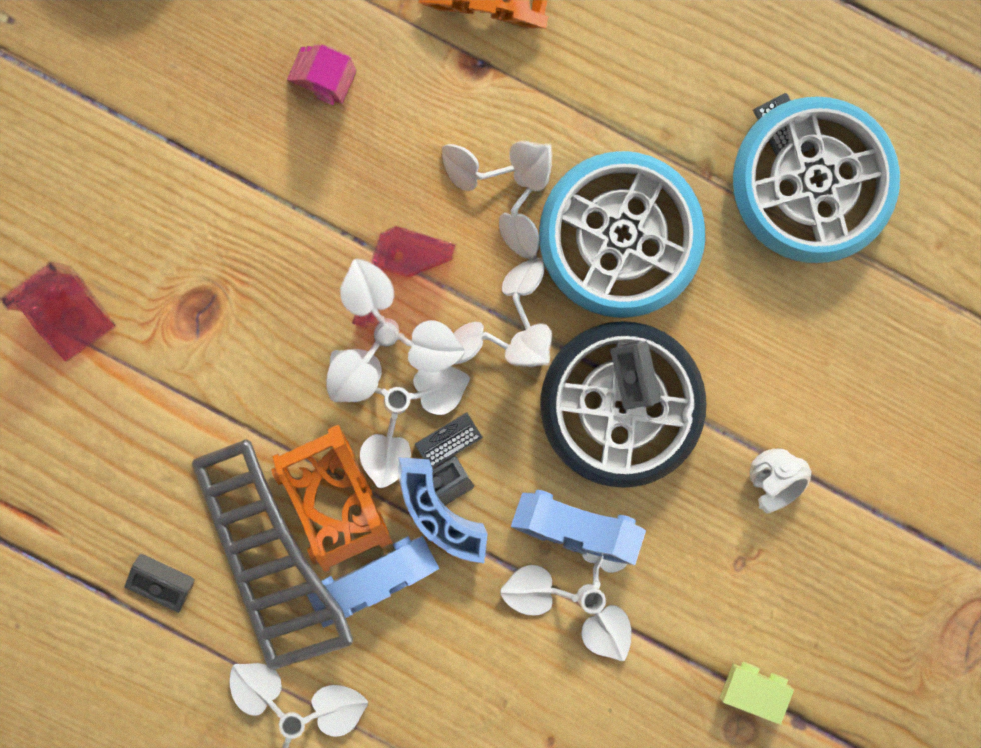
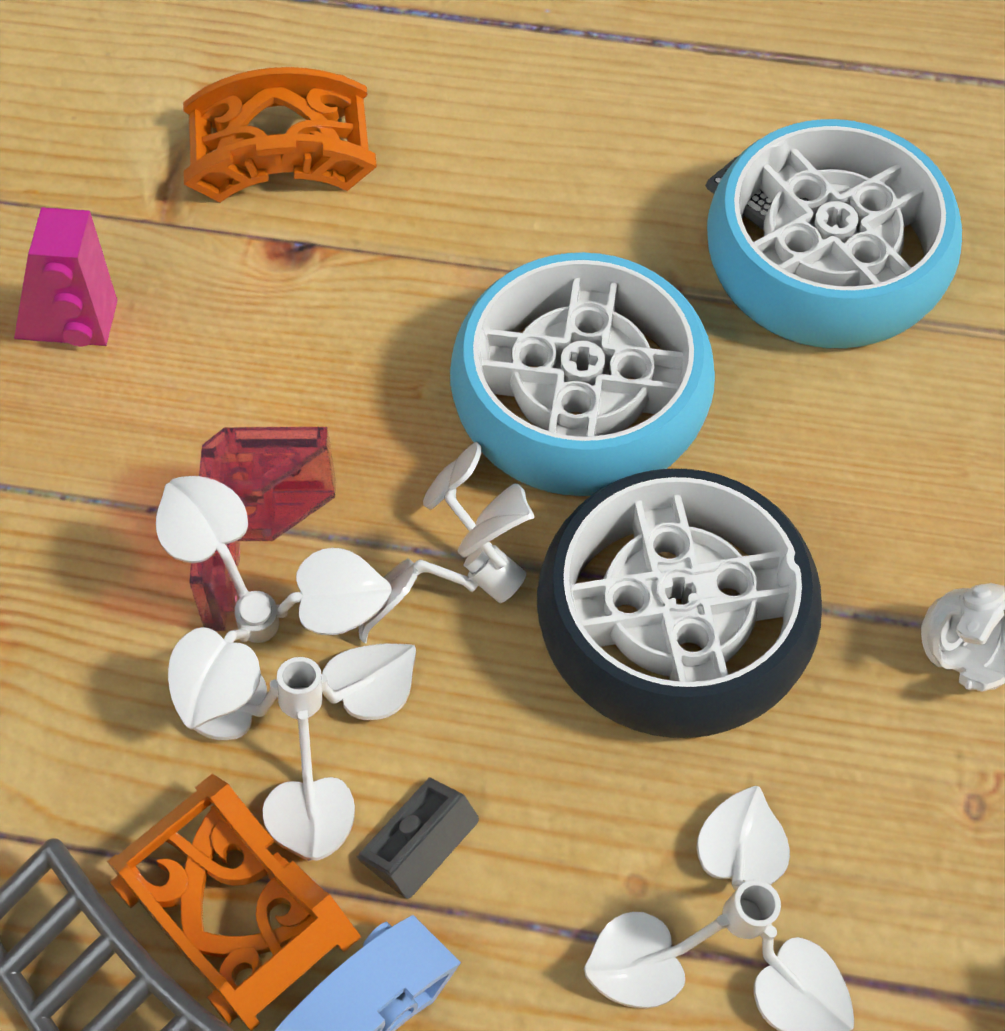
camera: 20 degrees left, 30 degrees down
(439, 524) = (420, 866): light blue brick -> none
(449, 440) = (409, 752): slope -> none
(531, 170) = (404, 282): white plant -> none
(579, 530) = (684, 817): light blue brick -> none
(635, 375) = (680, 528): dark grey slope -> none

